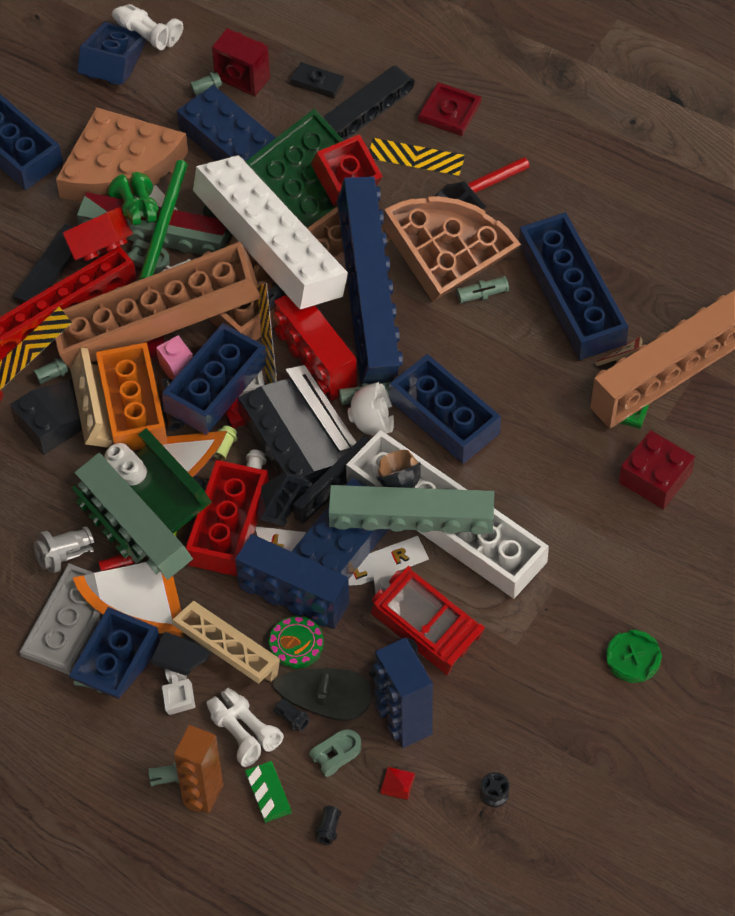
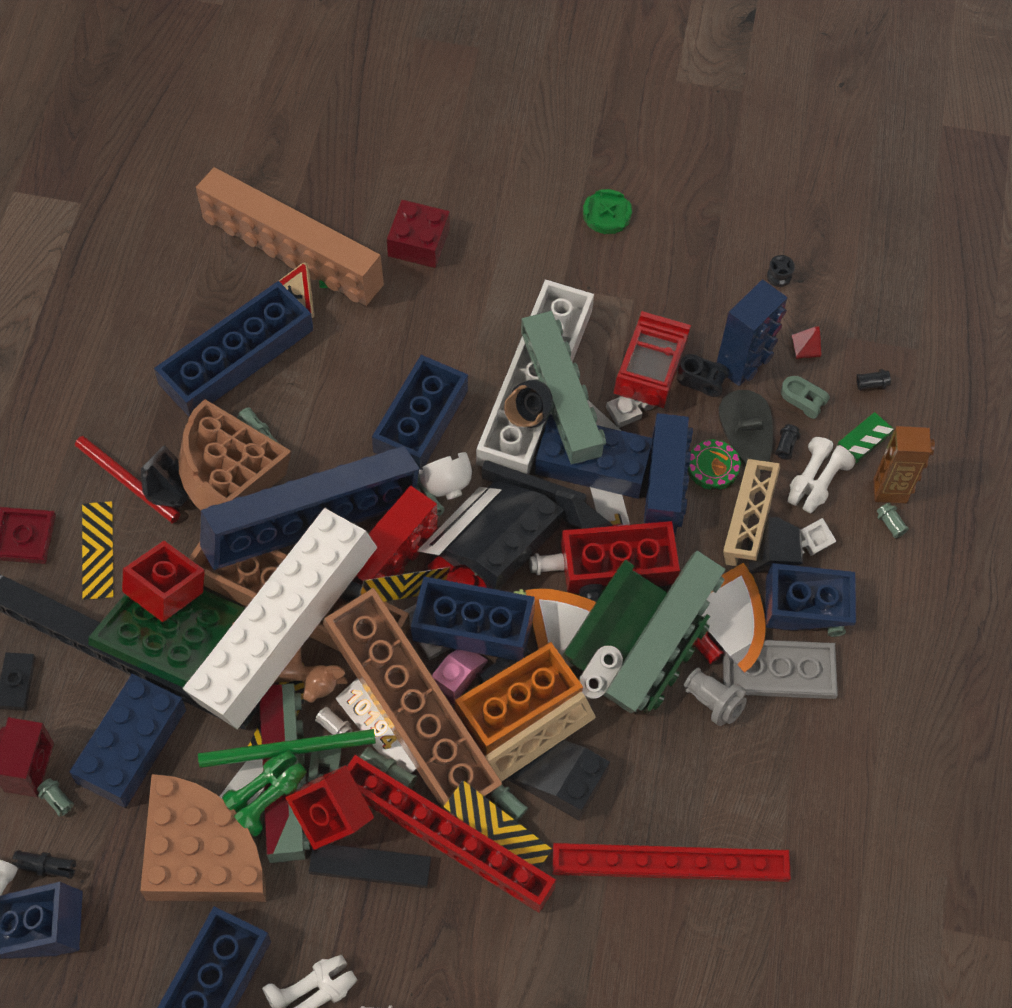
camera: 115 degrees left, 5 degrees up
(155, 67) = (44, 864): none -> black pin

